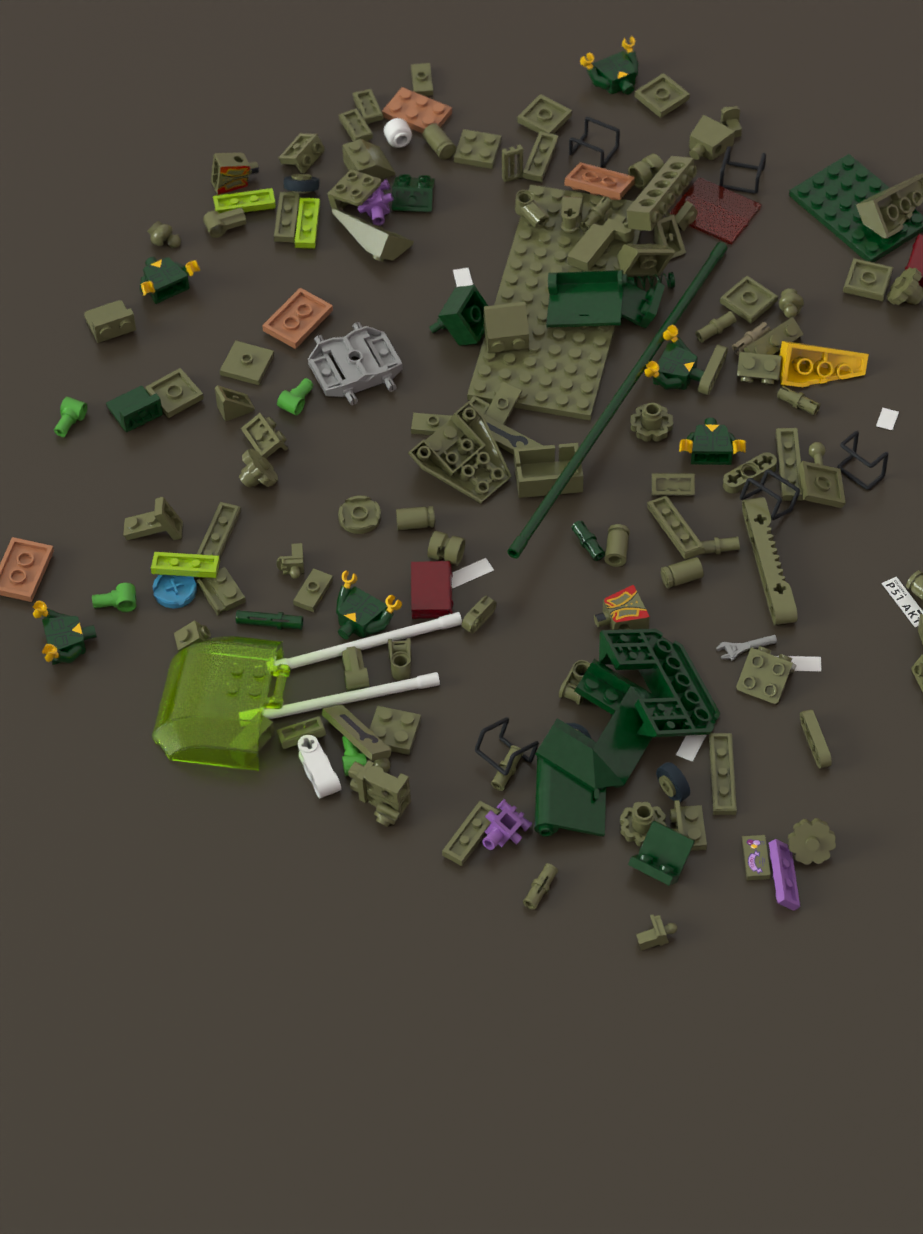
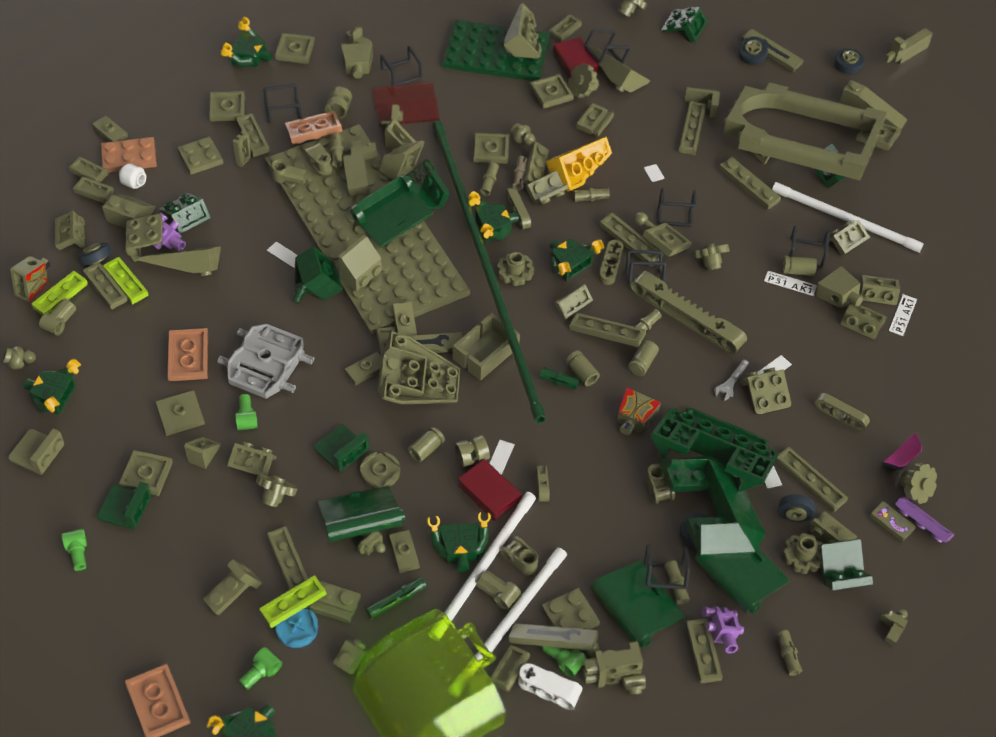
camera: 45 degrees left, 0 degrees up
(303, 535) = (361, 513): none -> dark green door
(345, 475) = (342, 447): none -> dark green bracket
(439, 141) = (168, 165): olive piece -> none
(452, 760) = (635, 606): none -> dark green door
(661, 193) = (371, 109): olive brick -> none
(826, 814) = (904, 454): none -> dark pink piece
(846, 525) = (711, 255): none -> olive plant
(880, 333) = (595, 120): none -> olive plate

